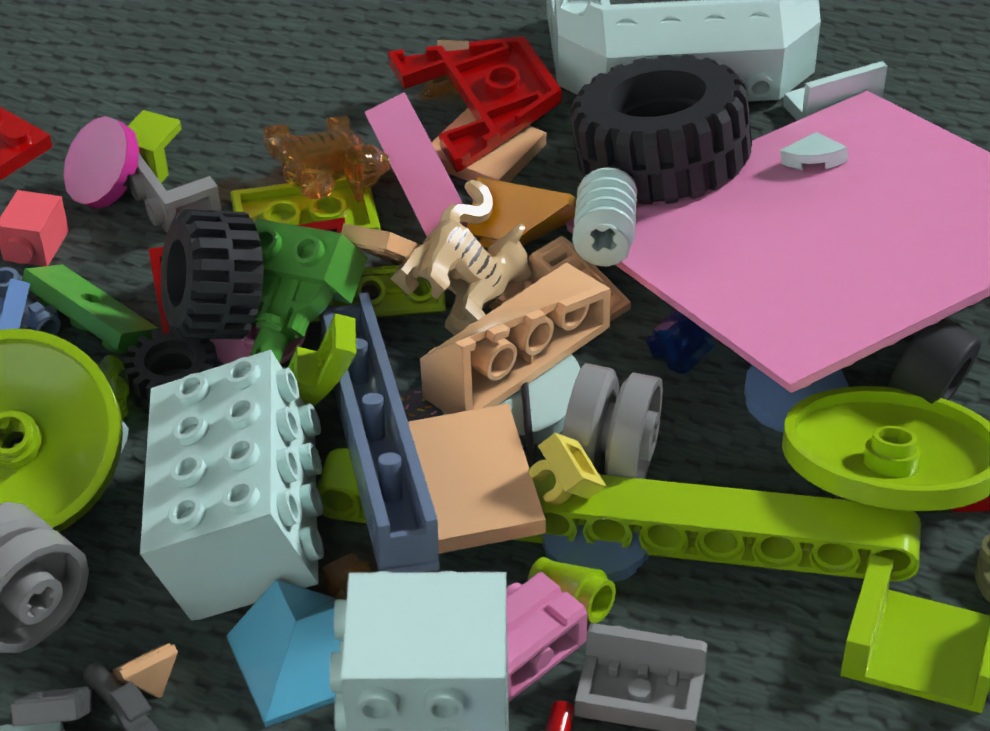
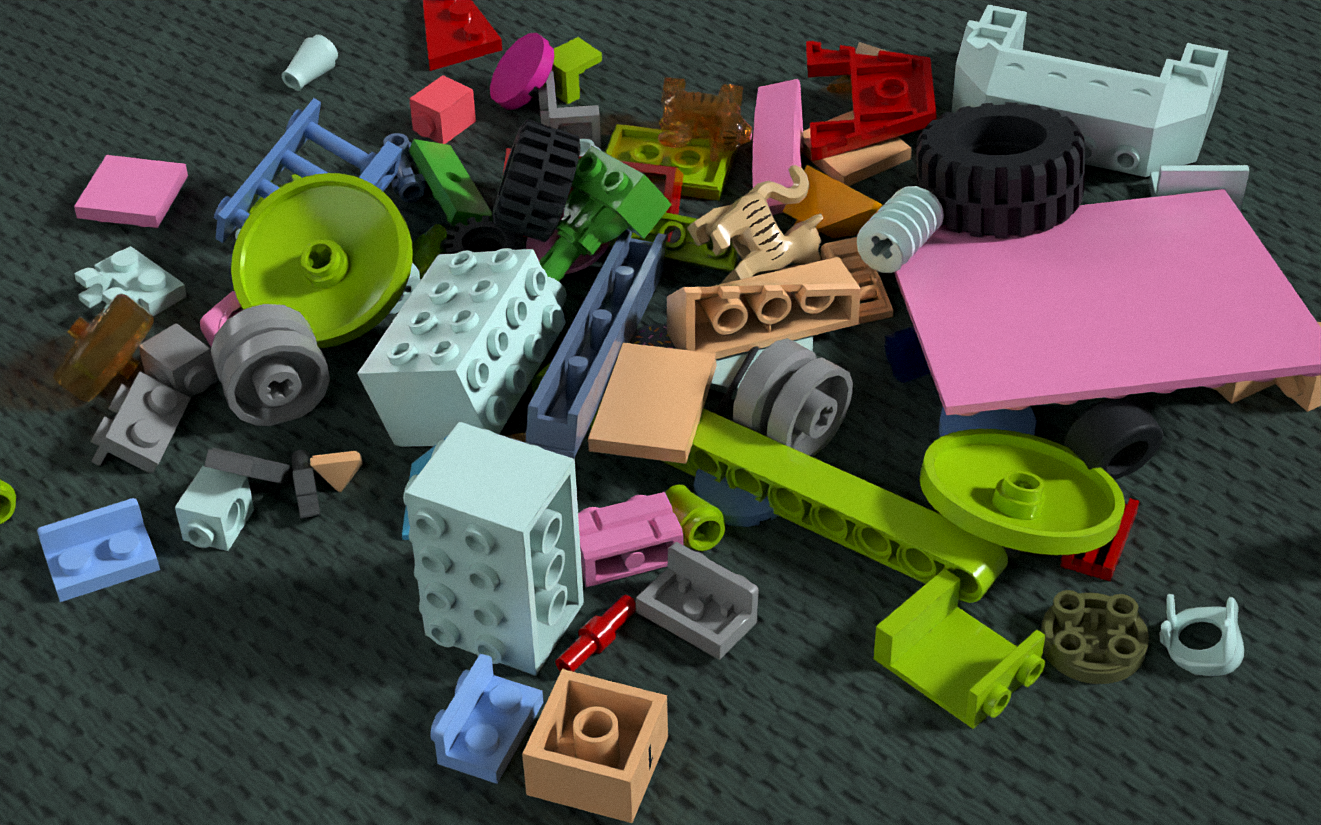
camera: 25 degrees right, 0 degrees up
(322, 369) = (578, 278): lime slope -> none
(379, 243) = (684, 193): light nougat tile -> none
(571, 468) = (726, 417): light yellow tile -> none
(814, 149) = (1124, 225): light aqua tile -> none

